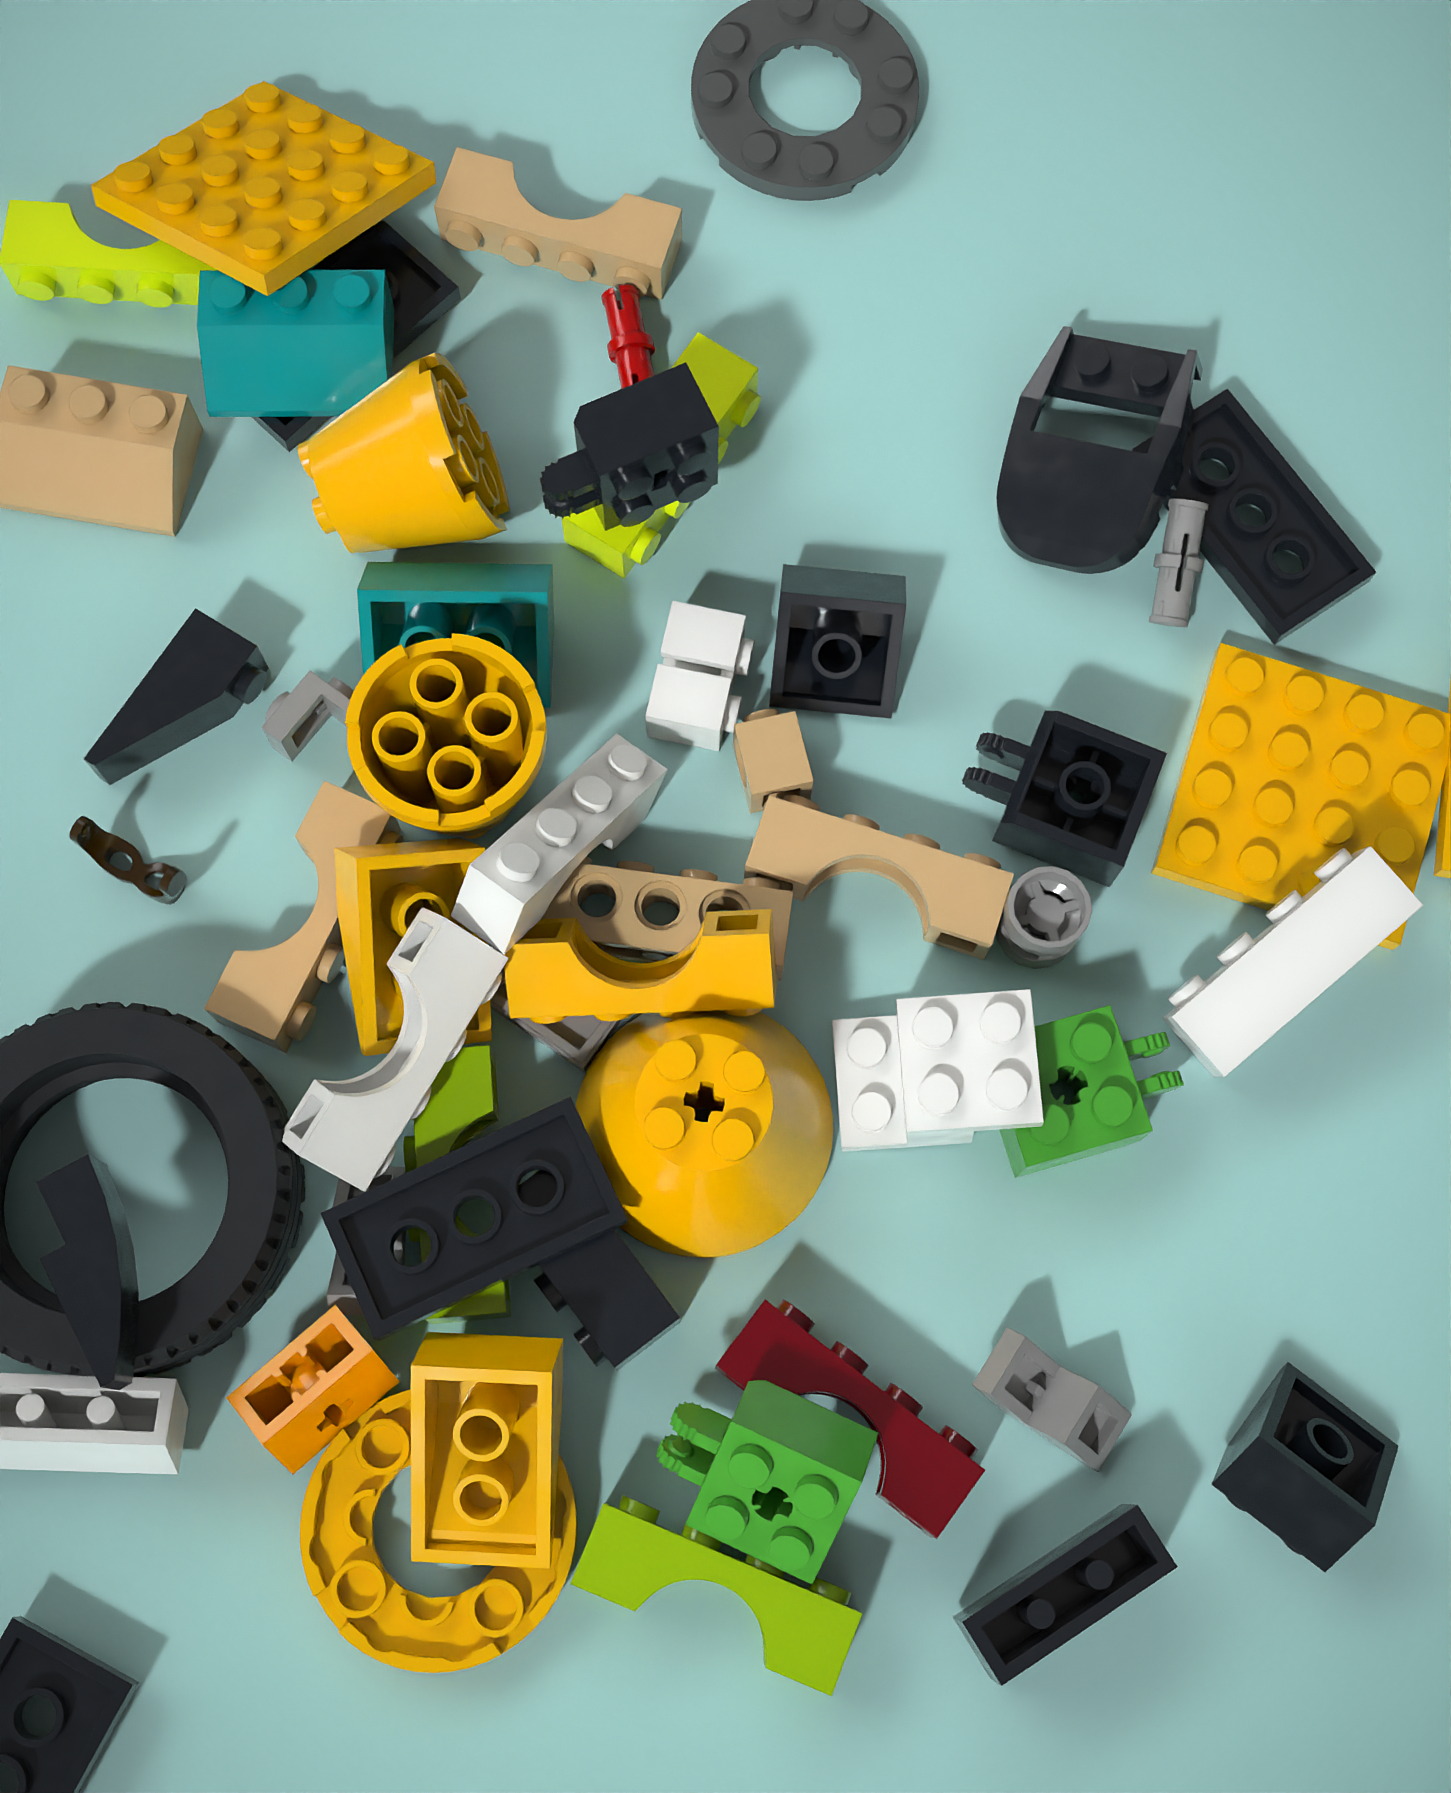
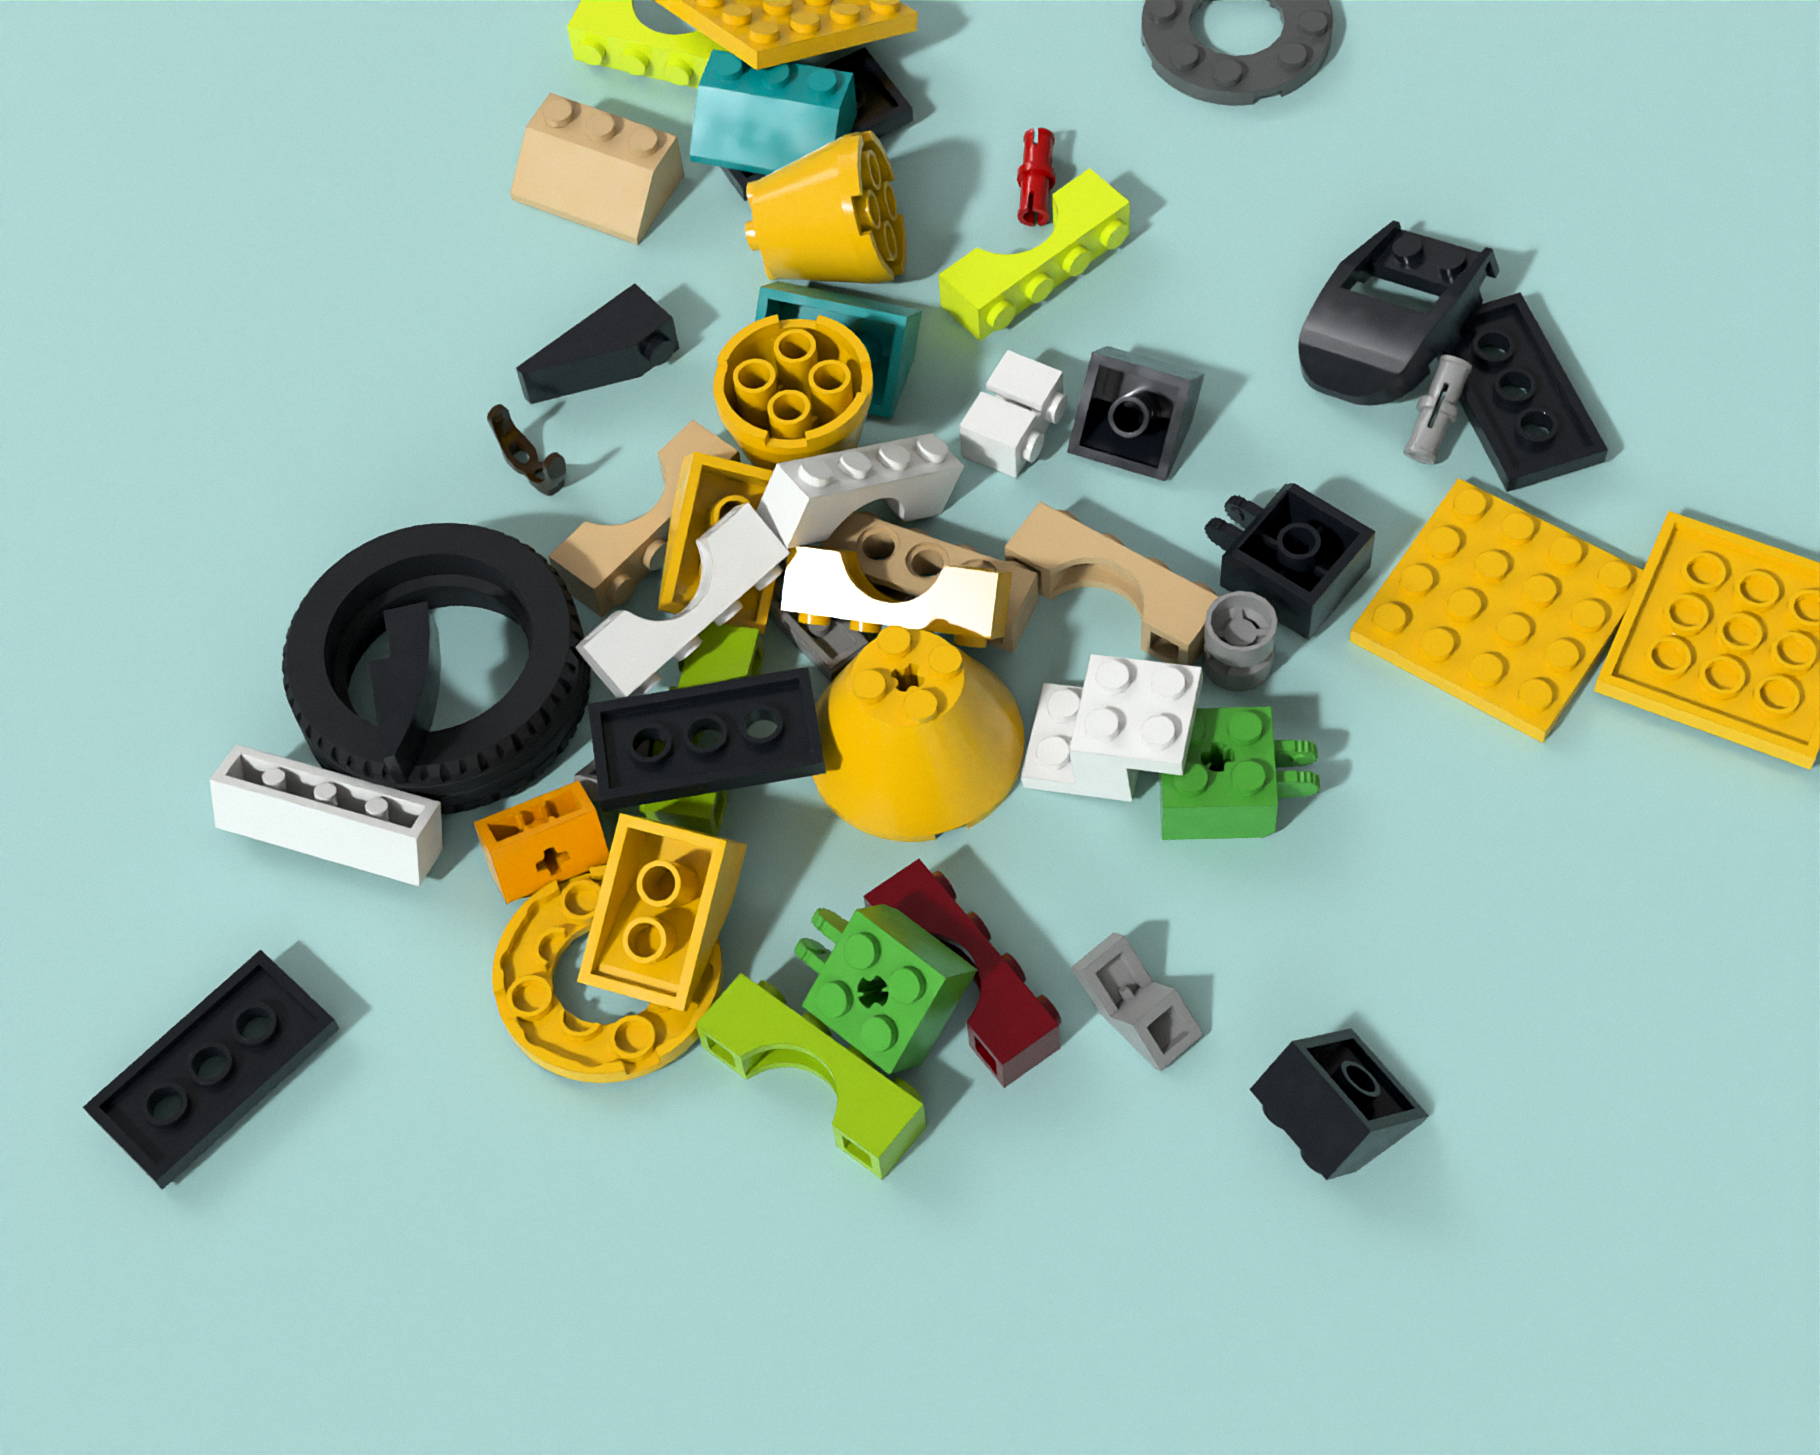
camera: 25 degrees right, 15 degrees down
(300, 714) = (688, 379): light grey bracket -> none
(604, 1289) = (796, 833): black brick -> none
(623, 245) = (1061, 99): tan arch -> none
(637, 452) = (1006, 229): black hinge -> none
(771, 757) = (1054, 477): tan brick -> none
(1064, 1592) = (1097, 1135): black brick -> none
(1291, 961) = (1438, 713): white brick -> none

